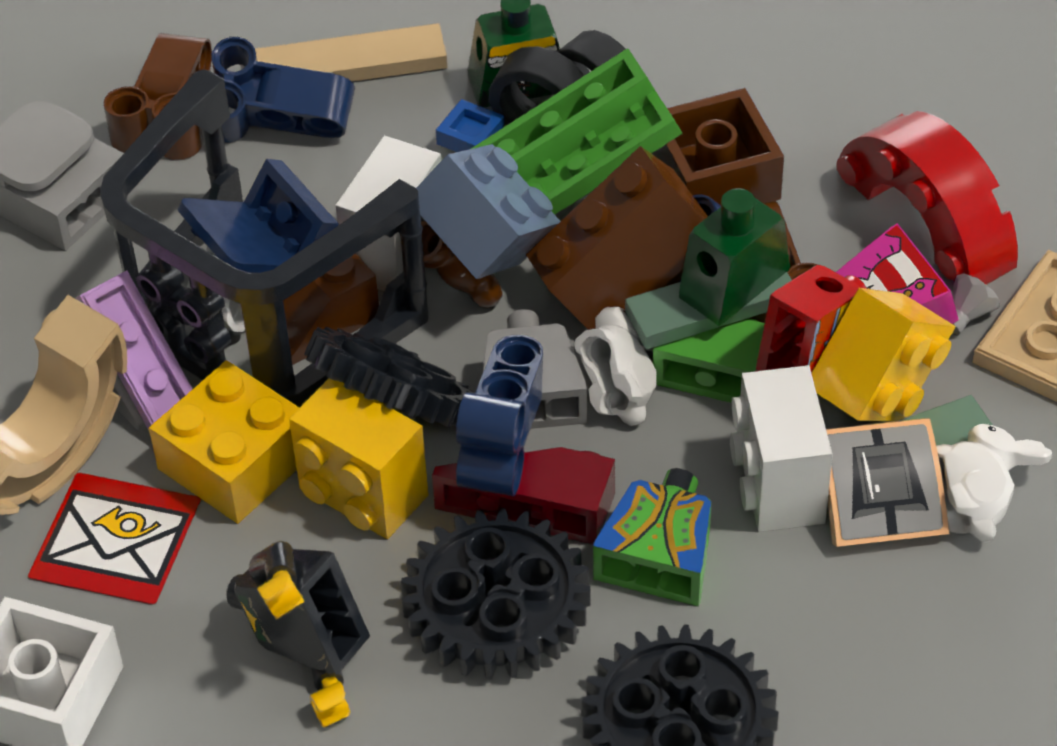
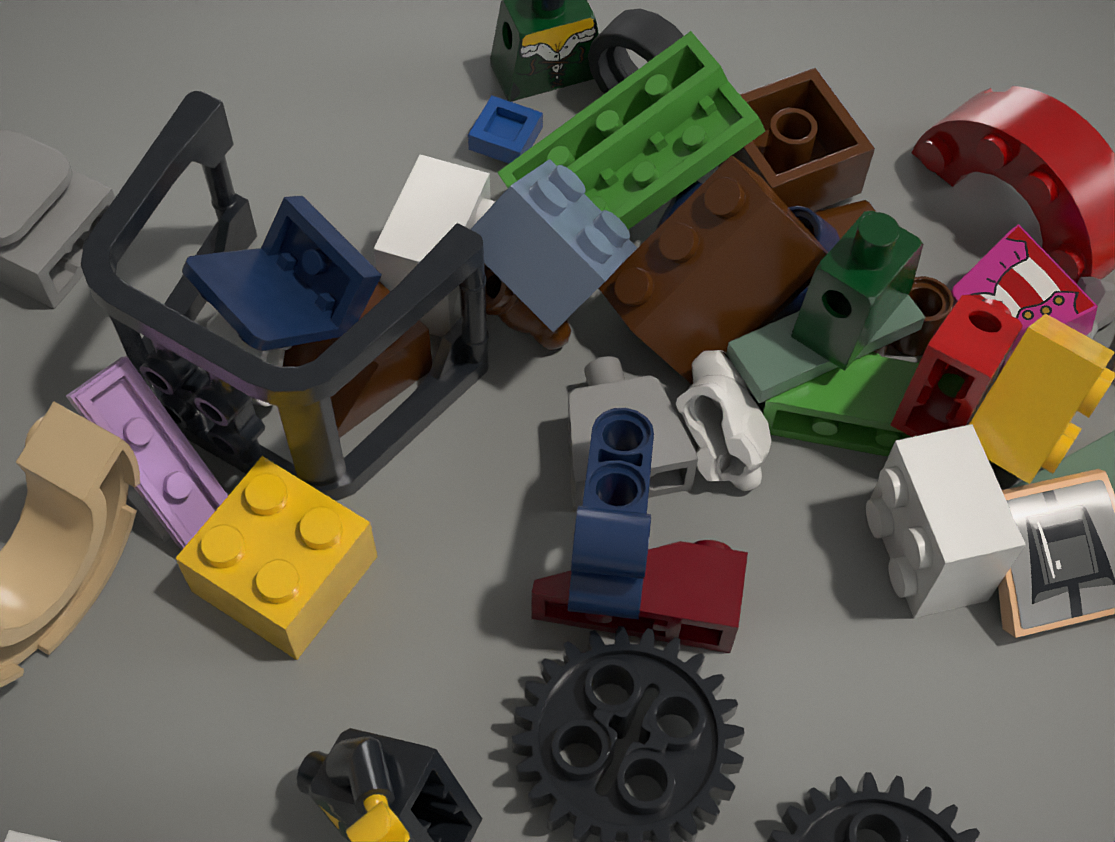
camera: 10 degrees left, 10 degrees up
(115, 538) = (147, 695): sticker -> none
(164, 73) = (153, 87): reddish brown piece -> none
(279, 95) = (285, 101): dark blue piece -> none
(359, 458) = (438, 574): yellow brick -> none
(365, 54) = (354, 52): tan tile -> none
(387, 375) = (467, 468): black gear -> none
(534, 66) = (575, 55): black tyre -> none
(657, 539) = (814, 648): torso -> none

